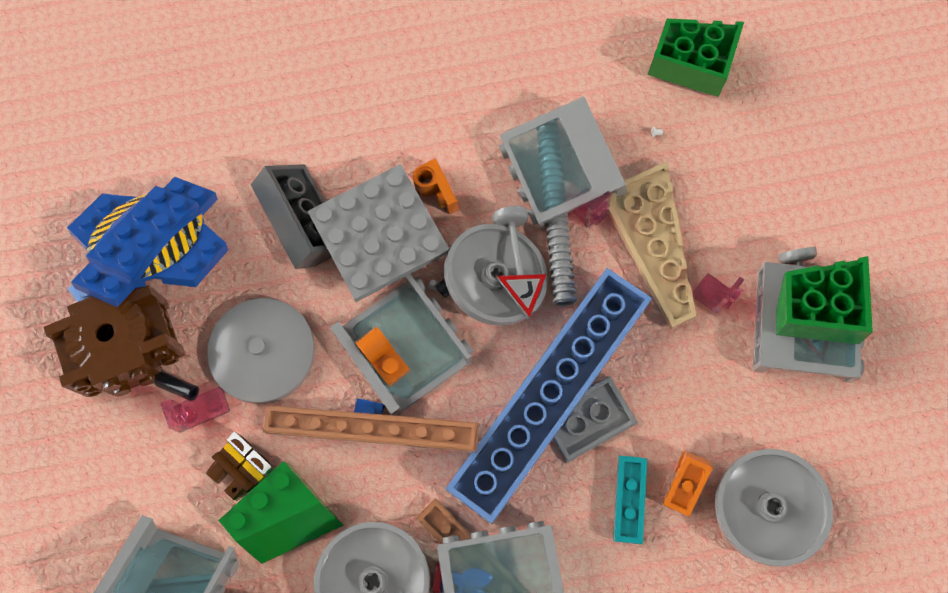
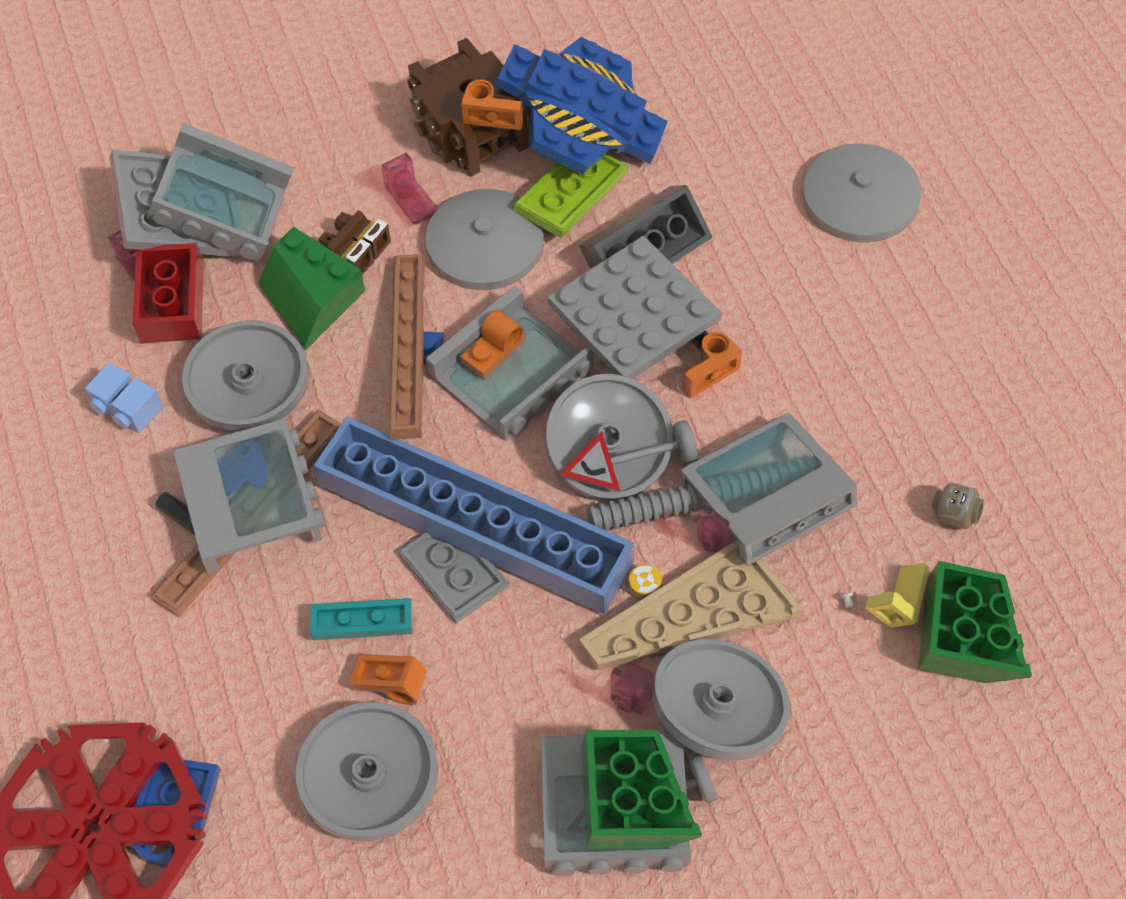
camera: 80 degrees right, 15 degrees down
(148, 315) = (483, 109): none -> orange plate
(176, 386) = (432, 171): black hinge -> none
(240, 275) = (567, 196): none -> lime tile
(288, 45) = (861, 192): none -> light grey dish
(595, 39) = (958, 505): none -> dark tan head
(624, 268) = (644, 580): none -> yellow tile
(662, 90) = (903, 604): none -> light yellow bracket
(738, 231) = (720, 699): none -> light grey dish

